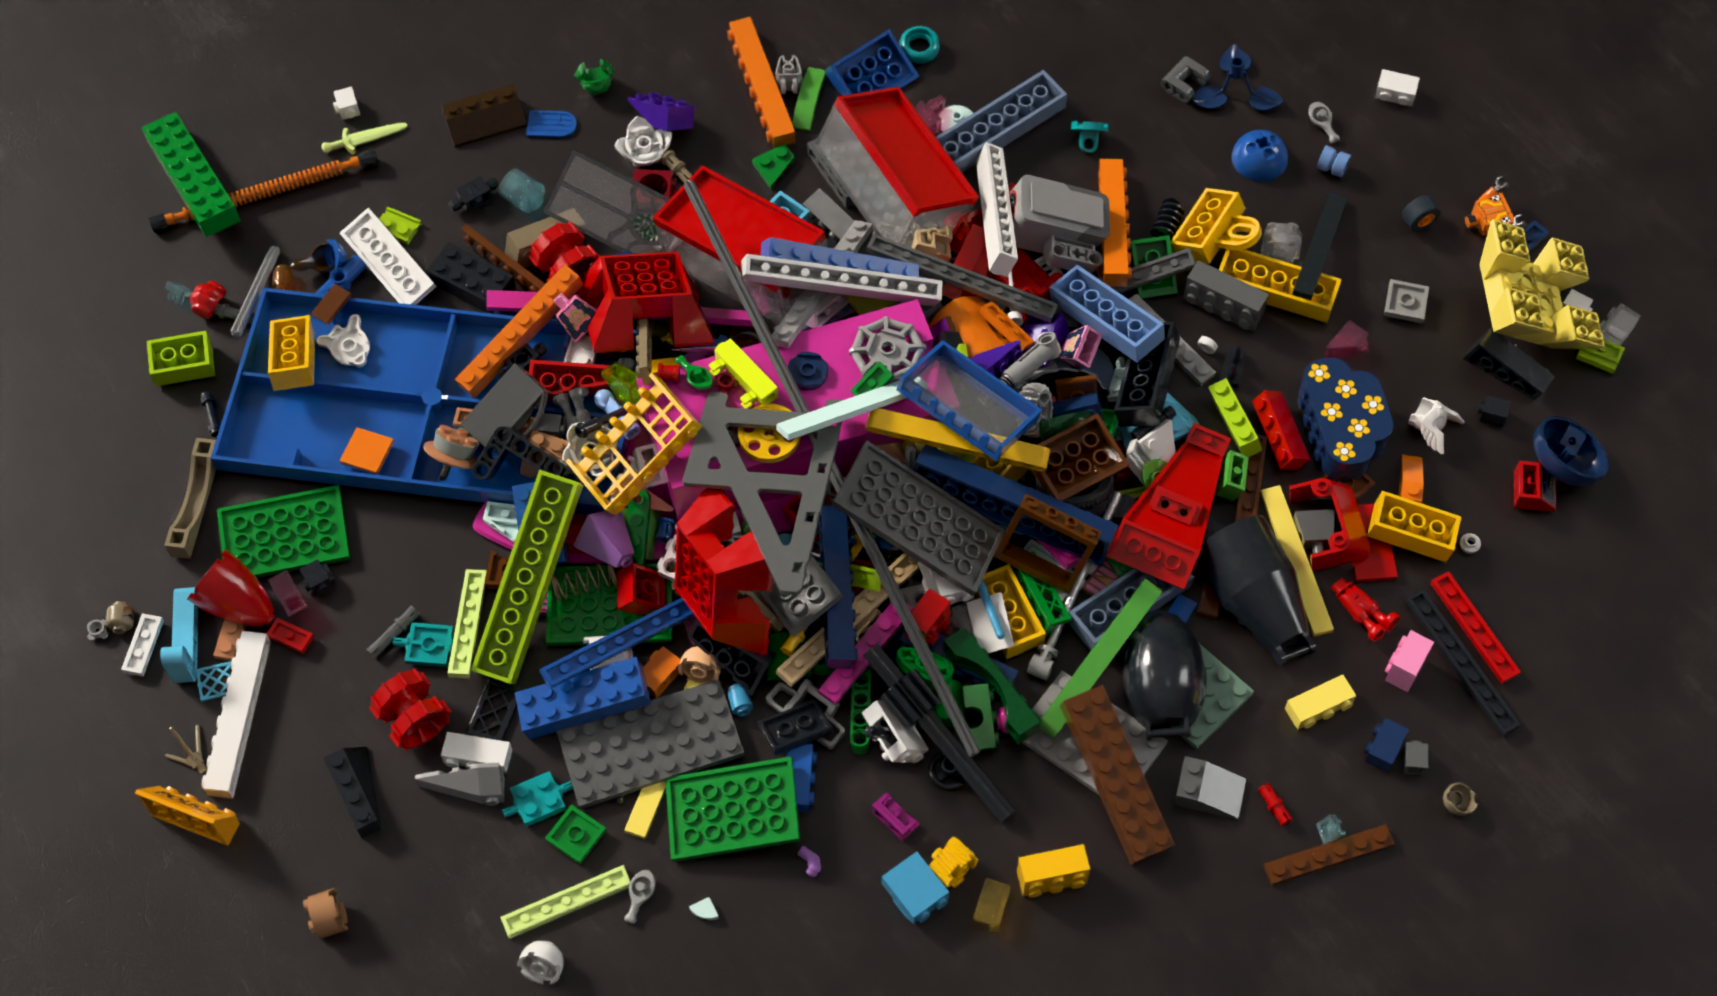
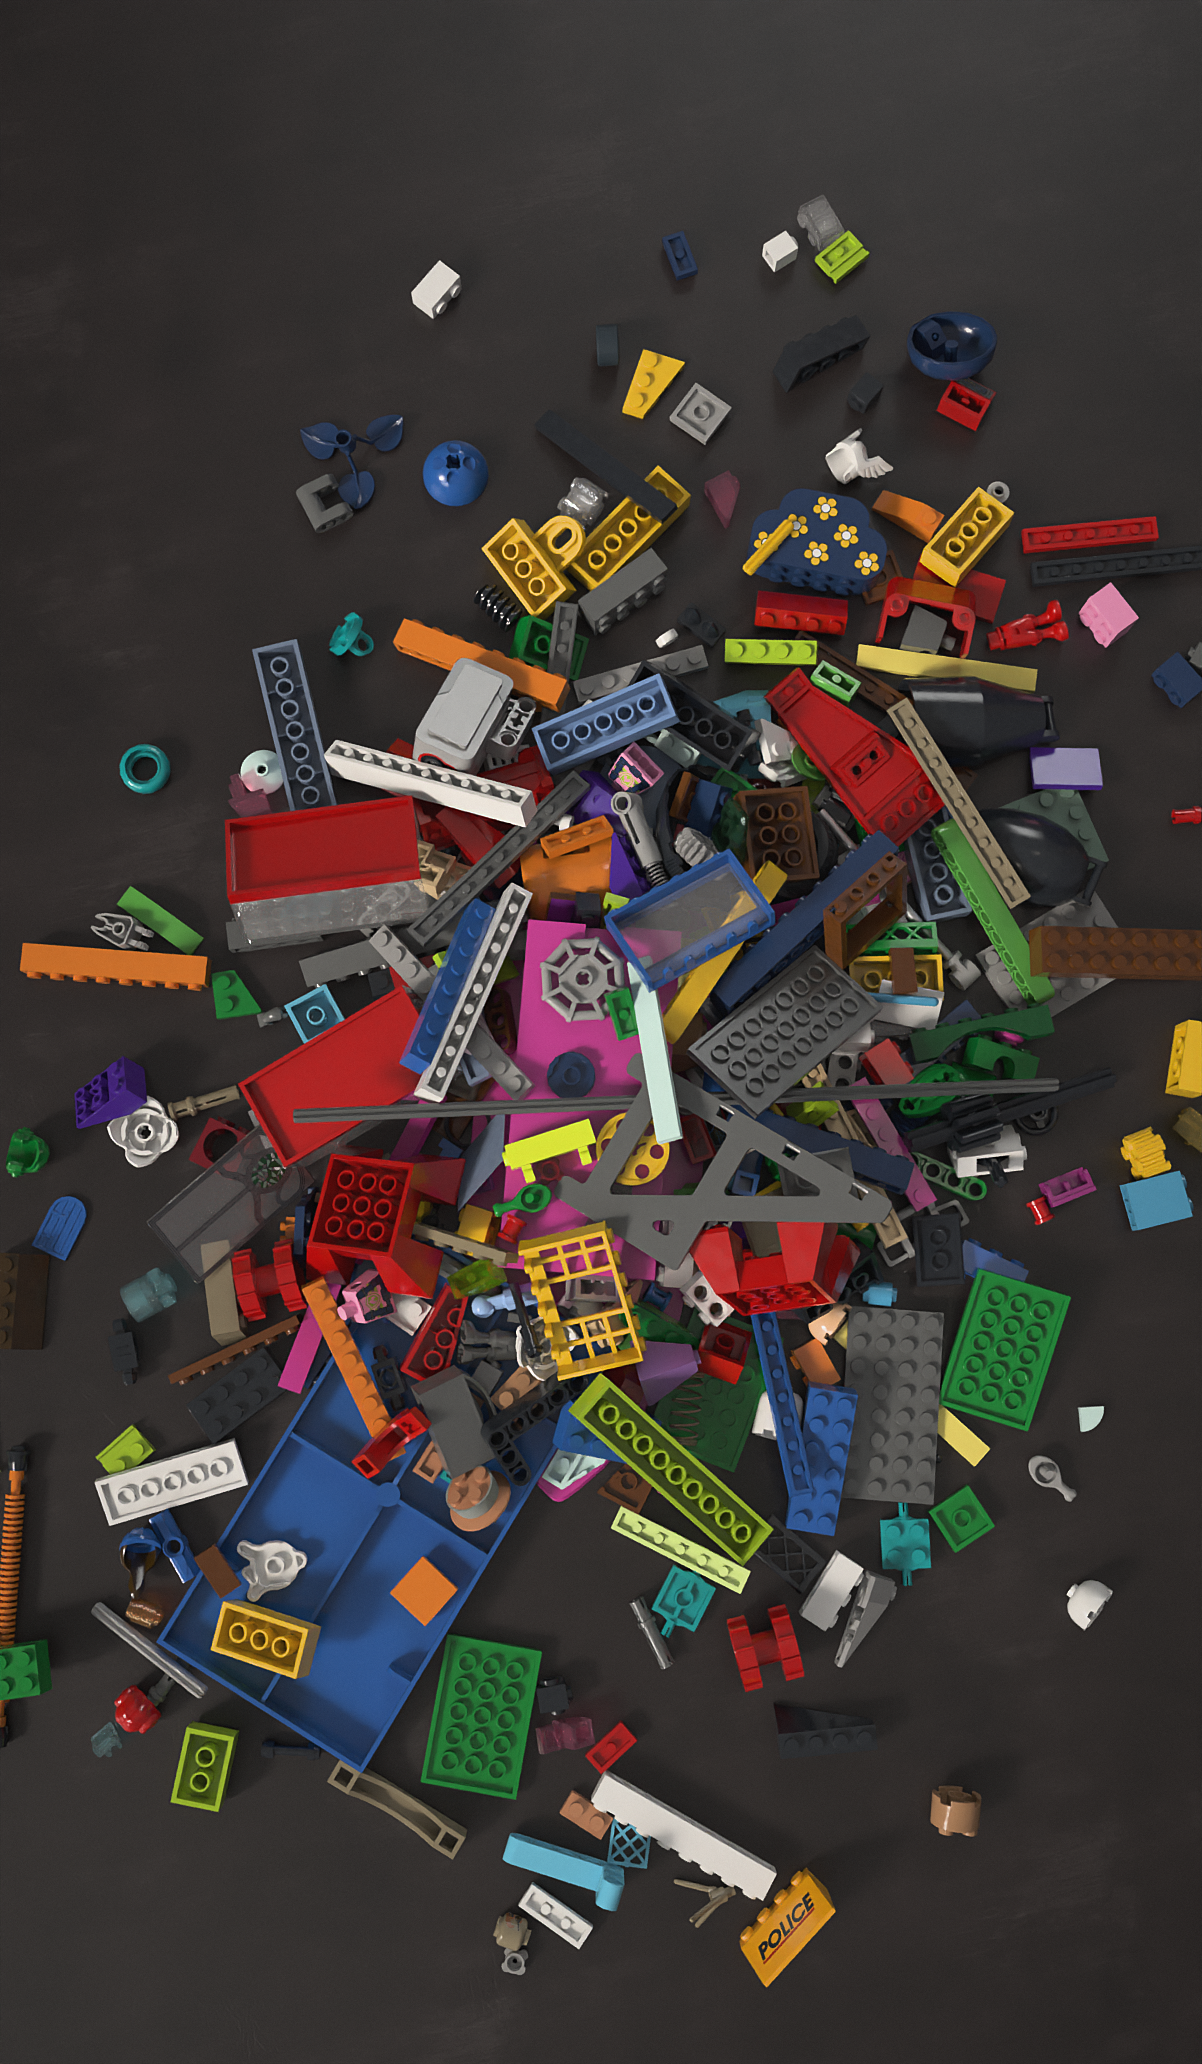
camera: 70 degrees left, 20 degrees up
(233, 593) = (542, 1801): red cylinder -> none
(470, 367) = (390, 1440): none -> red arch
(566, 901) = (1027, 1554): yellowish green tile -> none
(768, 190) = (272, 1015): none -> dark grey arm
(812, 859) = (1083, 1288): medium lavender arm -> none
(865, 802) = (1040, 1210): none -> red bush
(872, 67) = (159, 837): blue slope -> none
(1015, 604) = (903, 971): none -> reddish brown tile
(1173, 584) = (958, 803): none -> dark tan plate
(1209, 788) = (1156, 870): slope -> none
(1258, 680) = (1065, 768): none -> tile
(1315, 372) = (768, 547): none -> yellow axle
(1320, 702) = (1111, 720): light yellow brick -> none
(1322, 117) = (438, 385): light grey piece -> none
(1332, 161) = (501, 401): medium blue wheel -> none
(1418, 257) = (650, 380): none -> yellow wing
(1493, 206) = (638, 274): torso -> none
(1526, 296) = (763, 294): light yellow slope -> none

